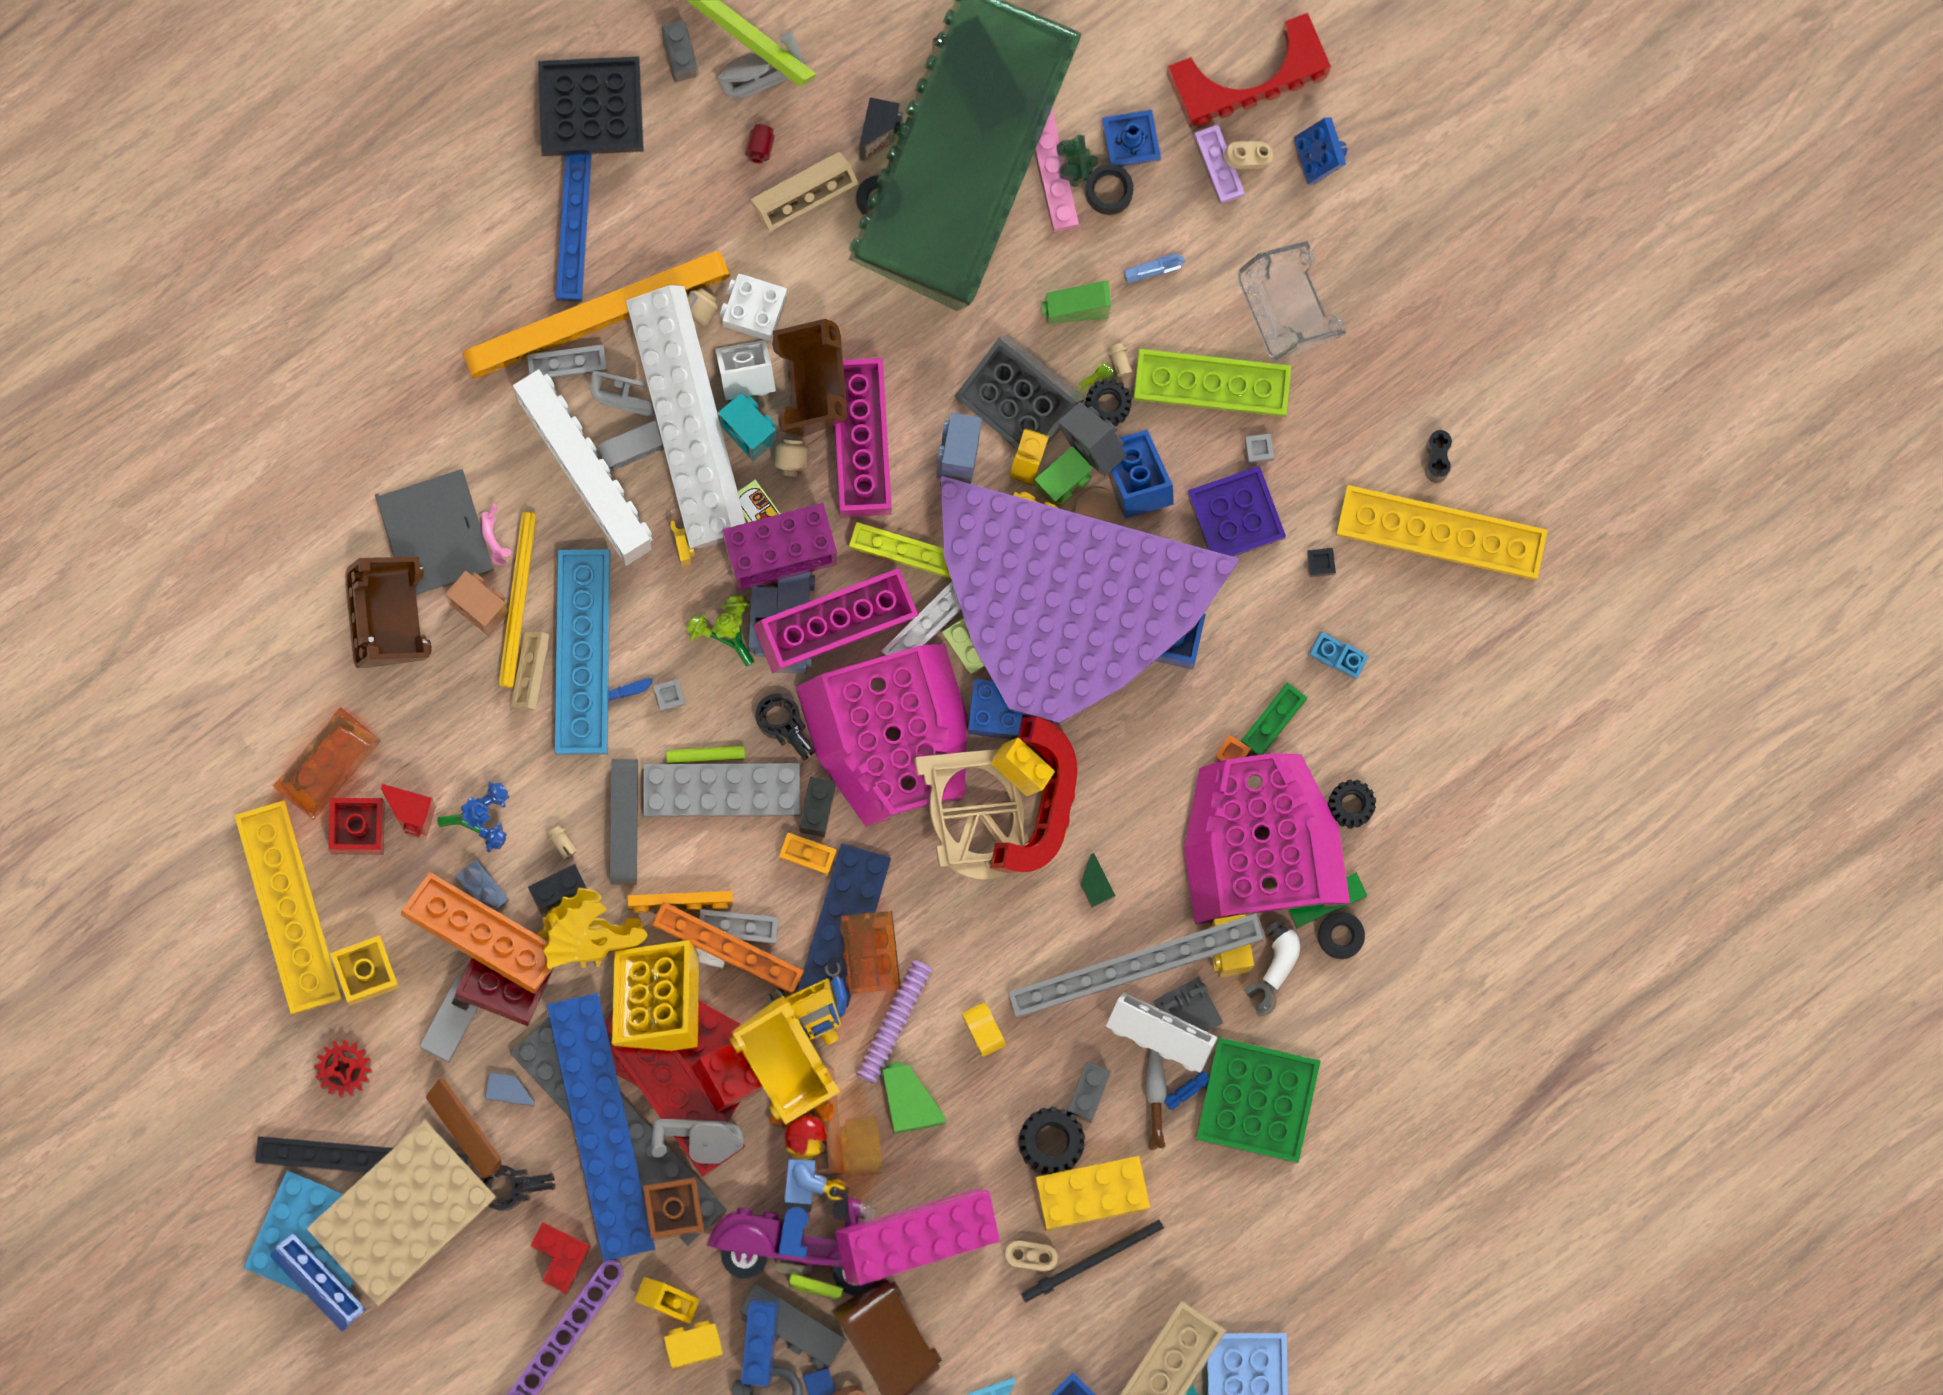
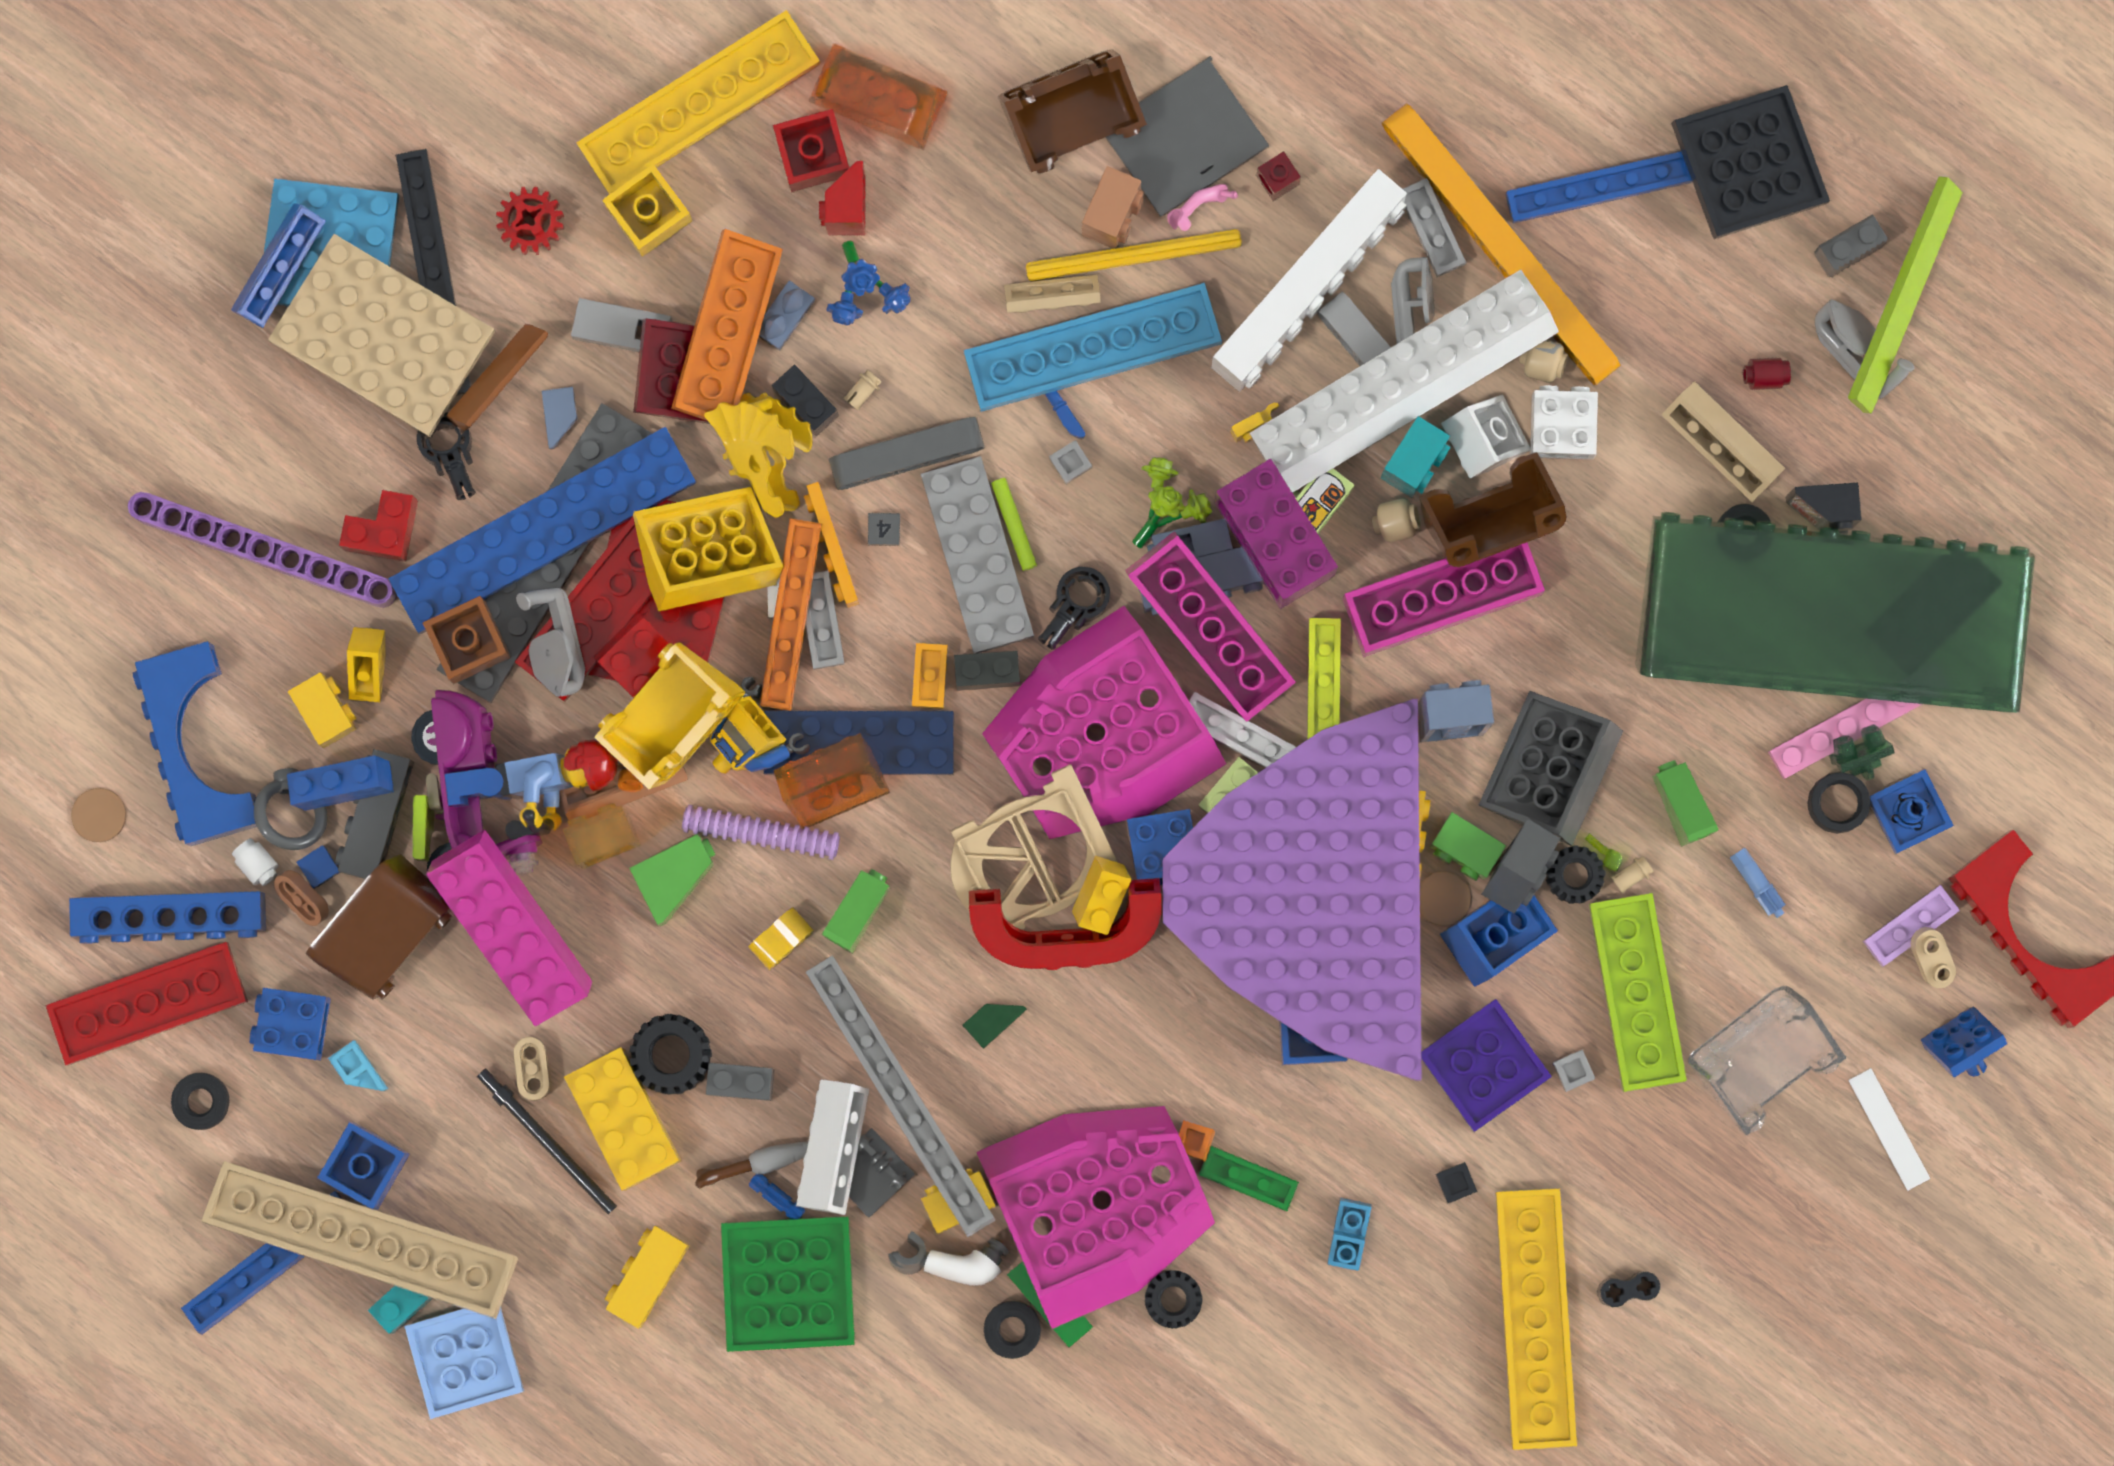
camera: 85 degrees right, 5 degrees up
(490, 468) = (1278, 176): none -> dark red brick
(679, 857) = (883, 529): none -> dark grey tile
(979, 962) = (857, 910): none -> bright green slope
(1028, 456) = (1481, 798): yellow slope -> none
(1221, 1209) = (646, 1276): none -> yellow brick
(1369, 228) = (1889, 1129): none -> white sticker

